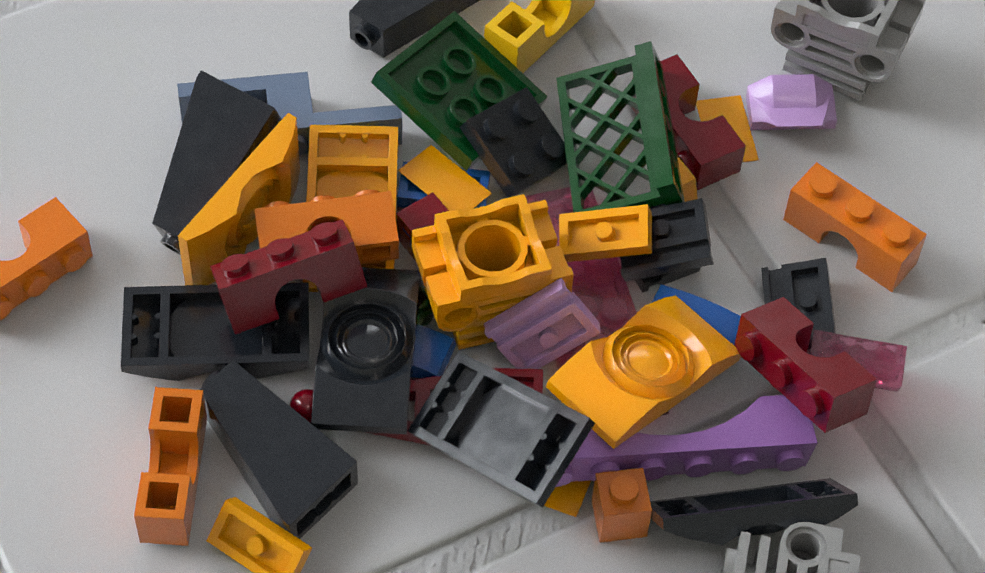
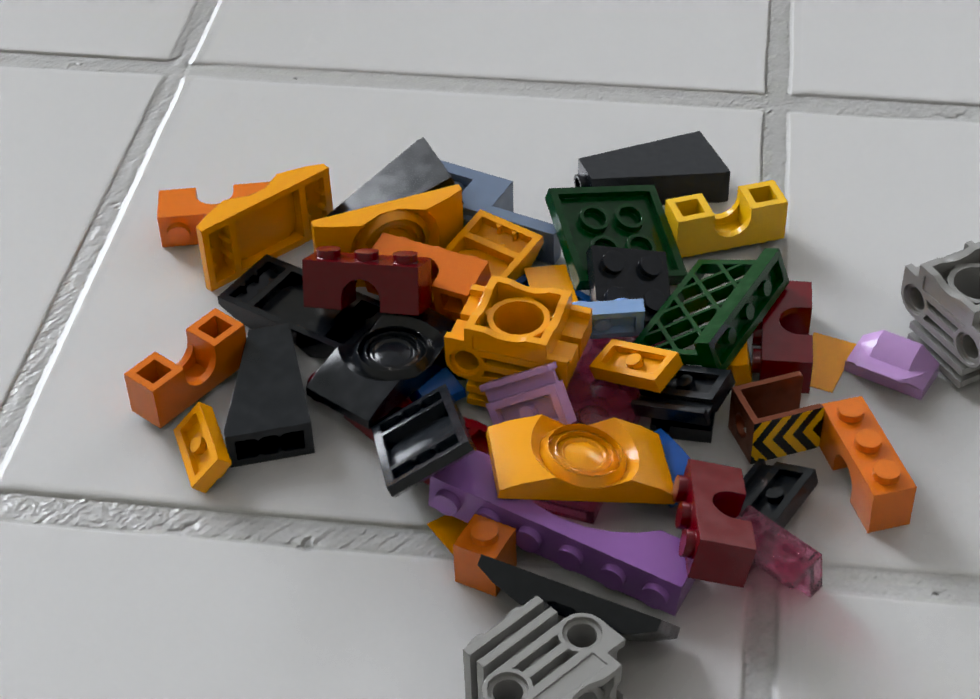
camera: 40 degrees right, 15 degrees down
(100, 250) = (264, 223): none -> light orange slope
(544, 183) = (616, 317): none -> light blue plate
(751, 247) = (774, 418): none -> piece

